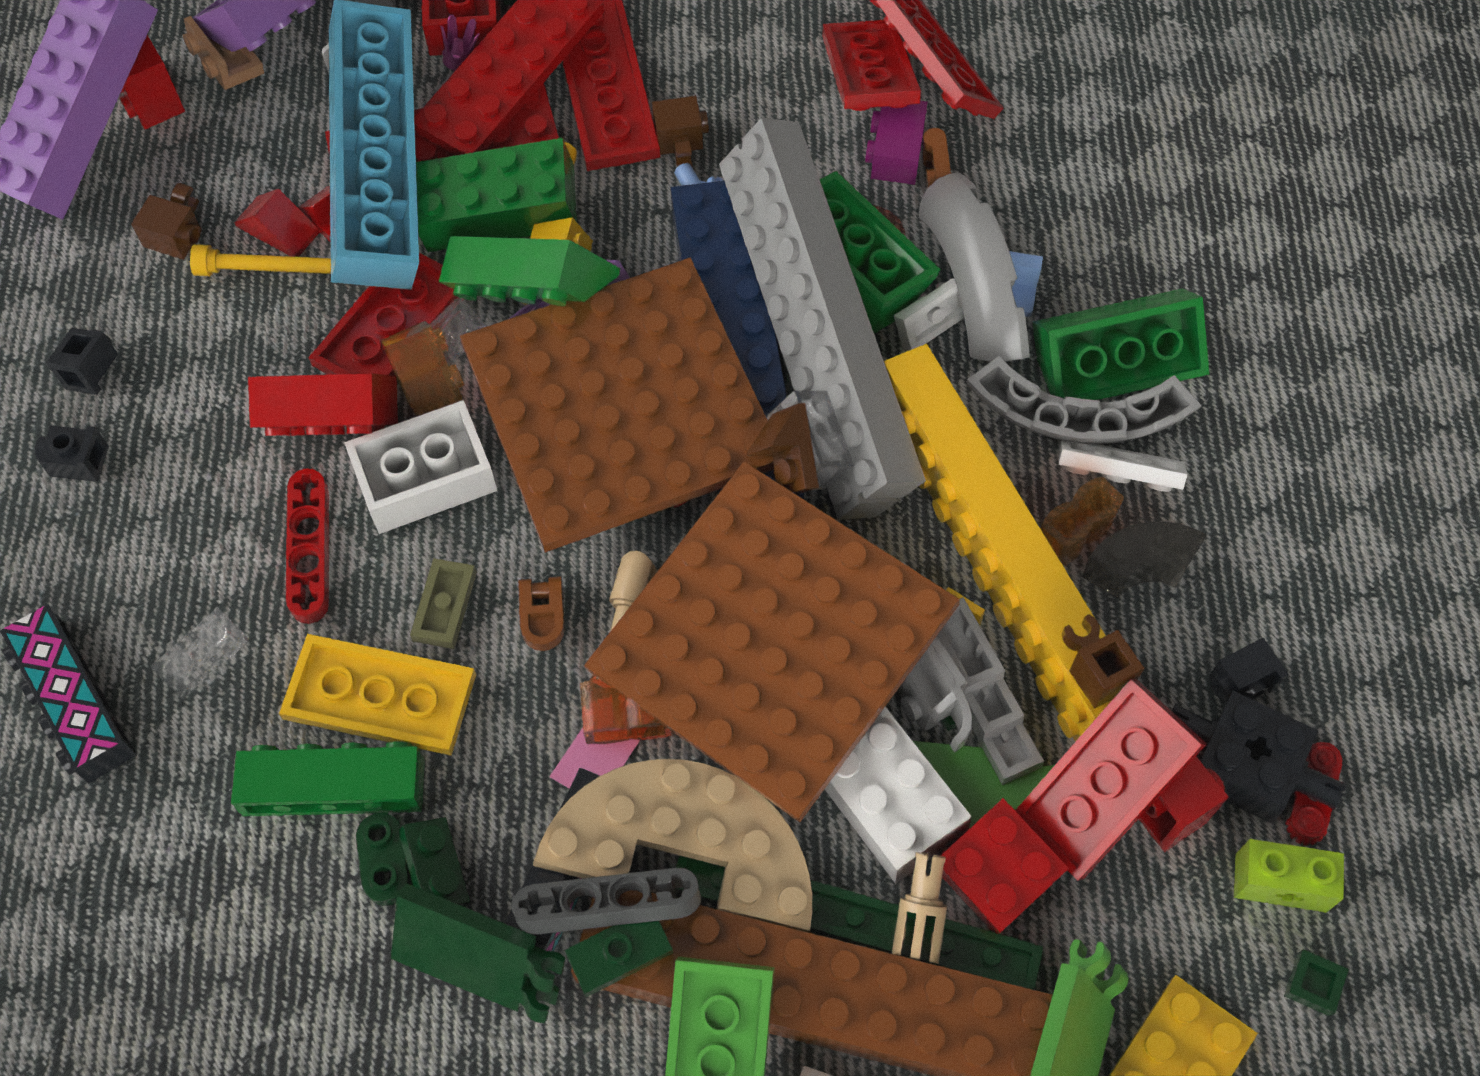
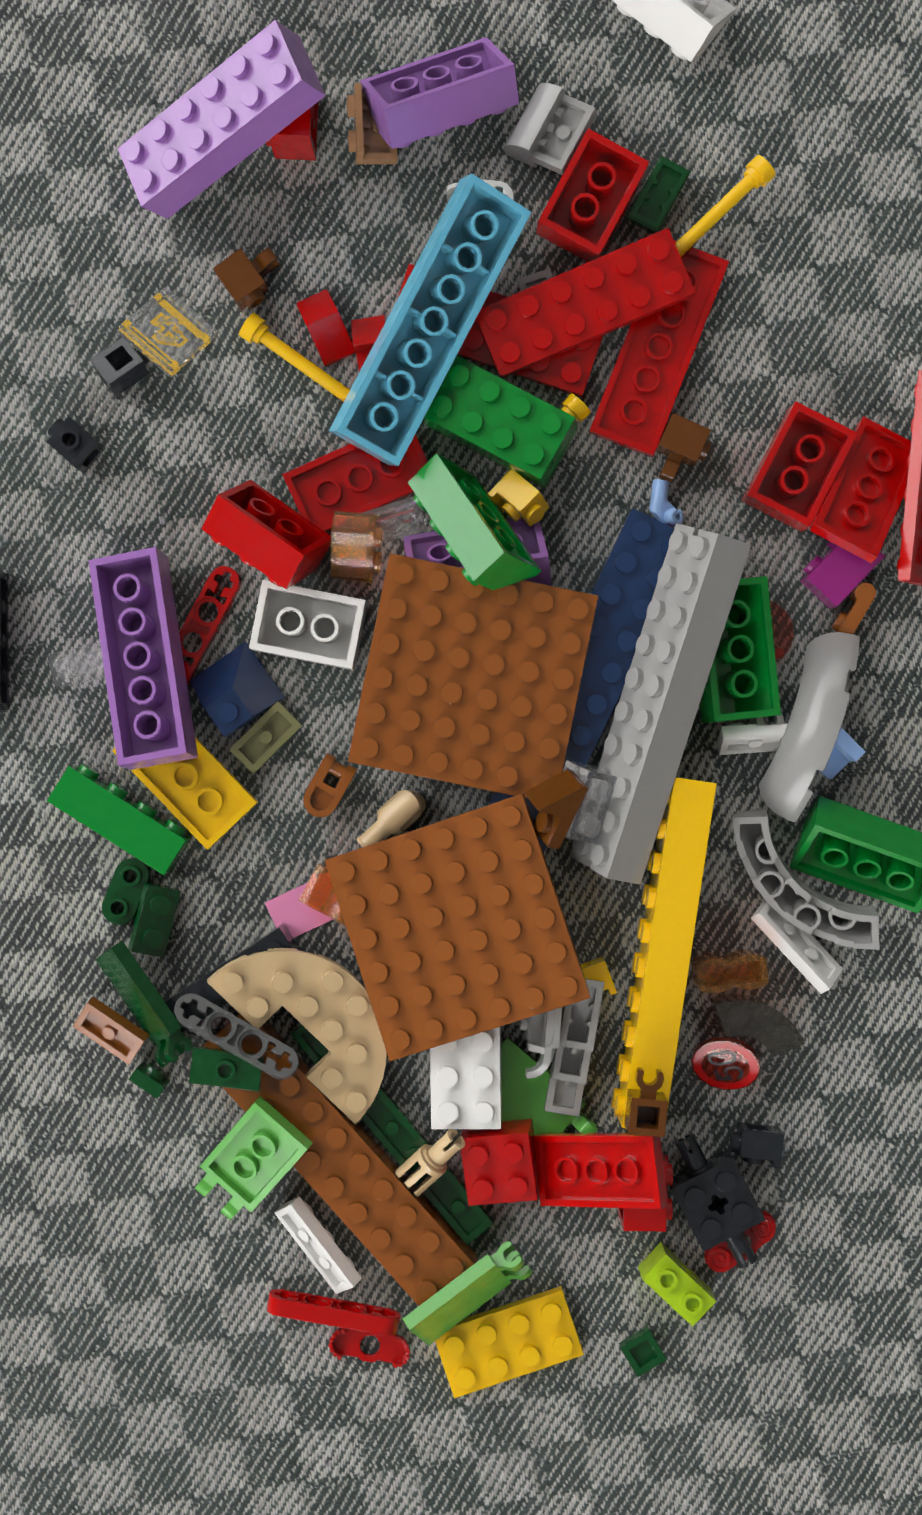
camera: 30 degrees right, 25 degrees up
(116, 304) = (167, 332): none -> clear tile
(262, 594) = (142, 659): none -> medium lavender brick
(382, 582) = (236, 690): none -> dark blue slope
(455, 48) = (554, 257): flat silver piece -> none
(456, 1023) = (110, 1030): none -> plate
(538, 1048) = (150, 1079): none -> dark green plate
(799, 78) = (799, 466): none -> red brick
(1149, 613) = (725, 1063): none -> piece

